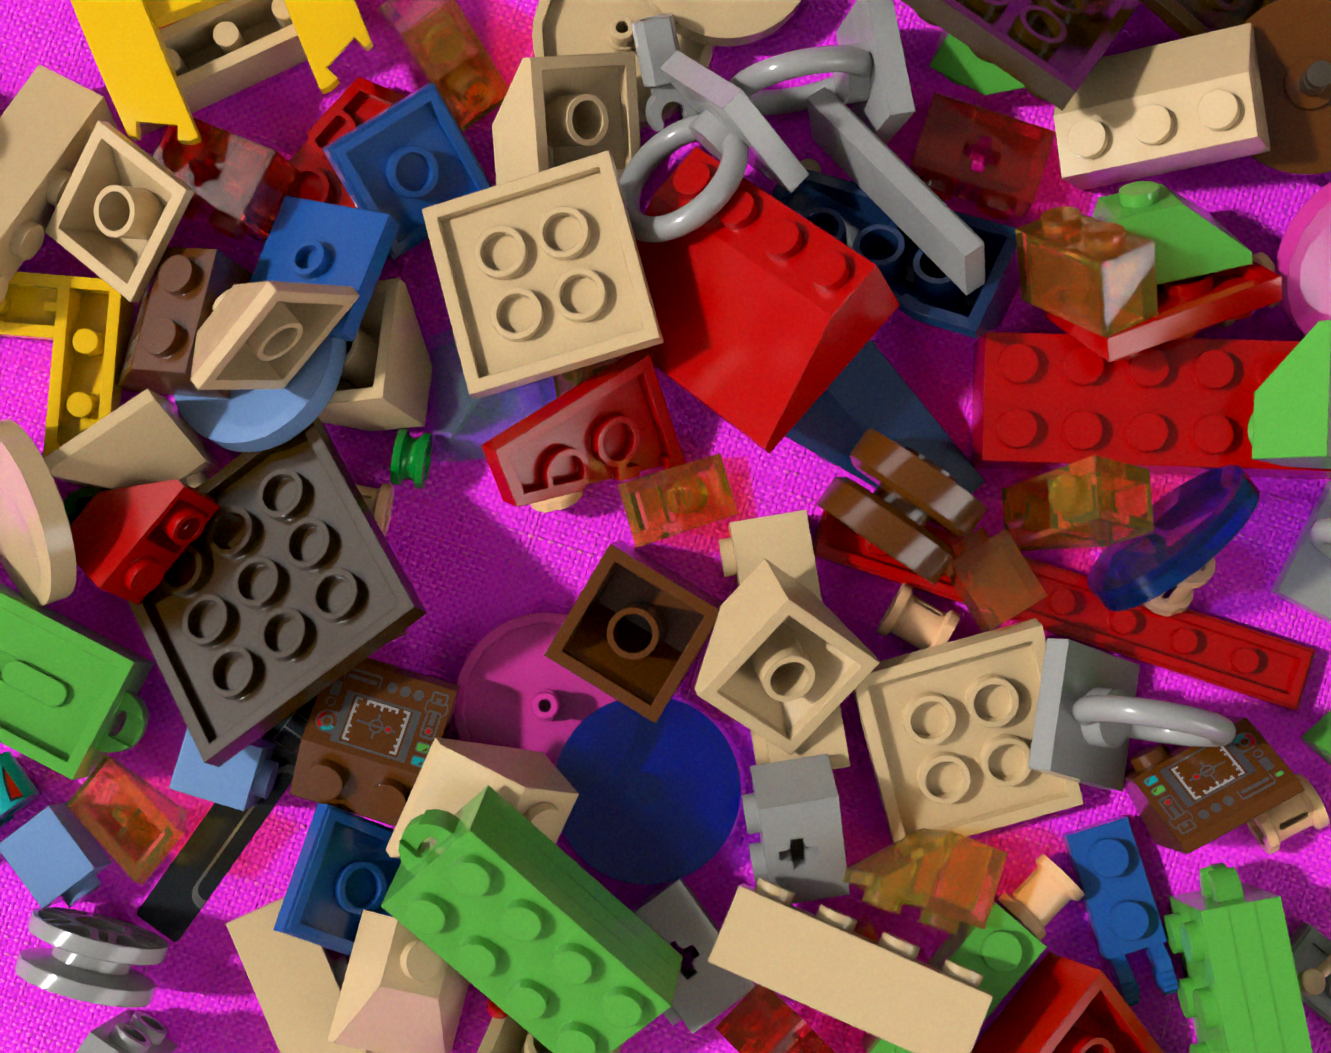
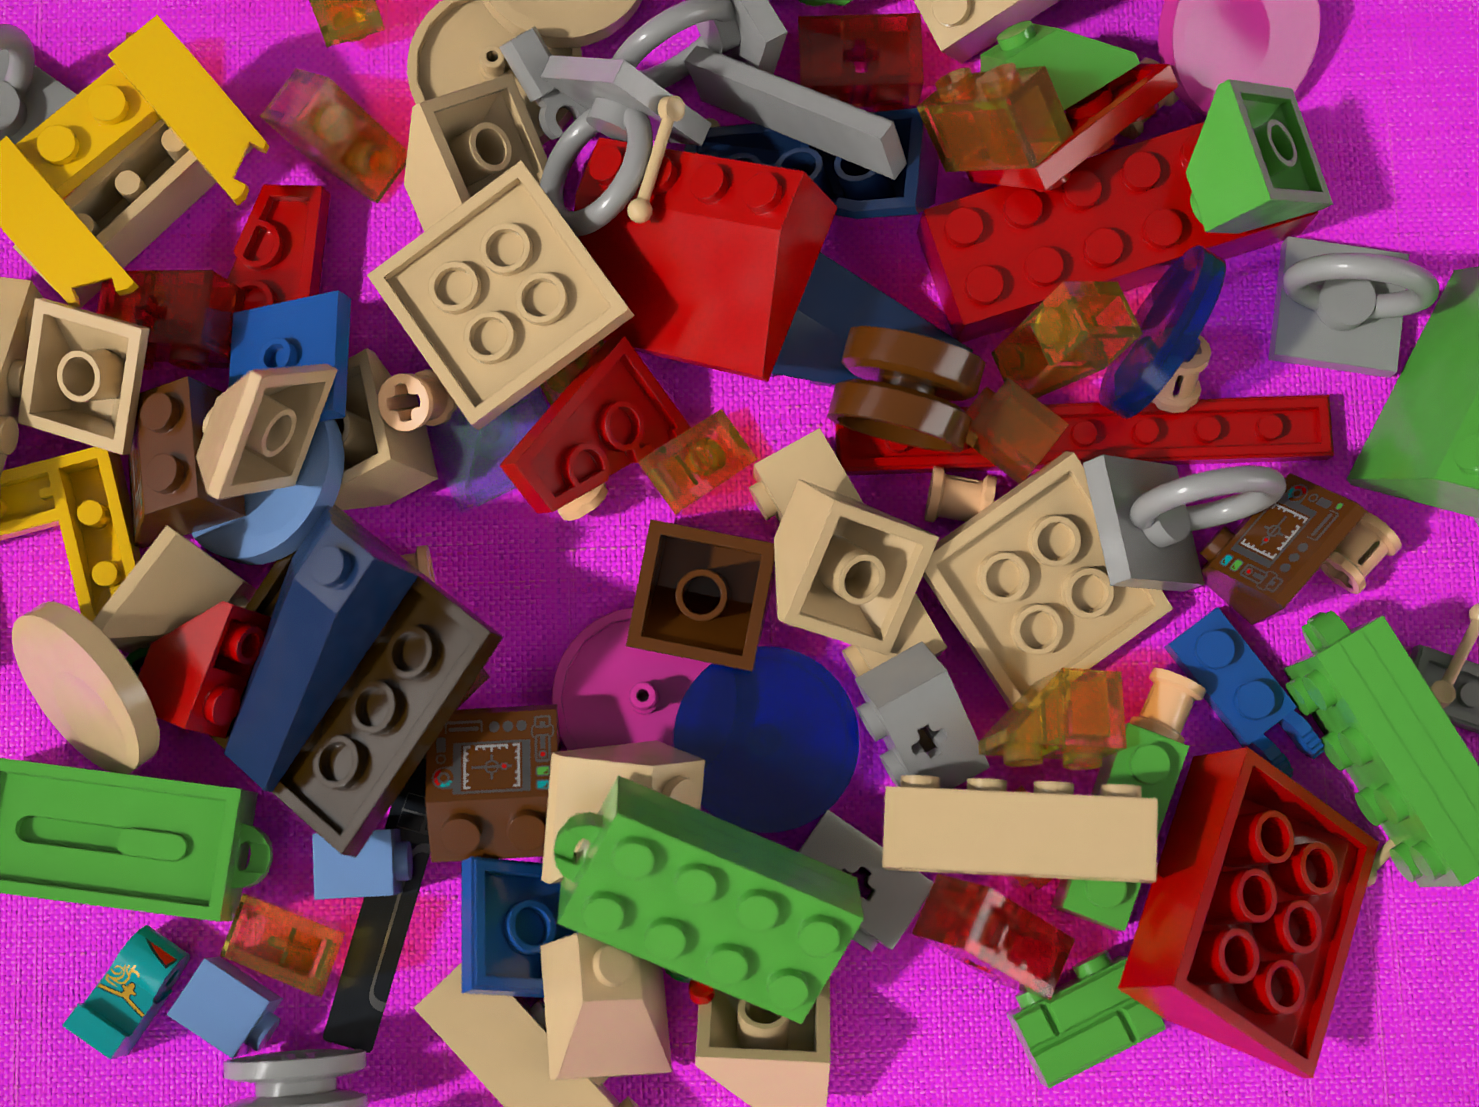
camera: 25 degrees left, 5 degrees down
(263, 535) = (322, 626): none -> dark blue wedge
(406, 163) = (334, 243): blue plate -> none
(411, 458) = (436, 515): green bush -> none
(424, 347) = (400, 405): none -> light nougat bush
(771, 151) = (670, 110): none -> tan hinge

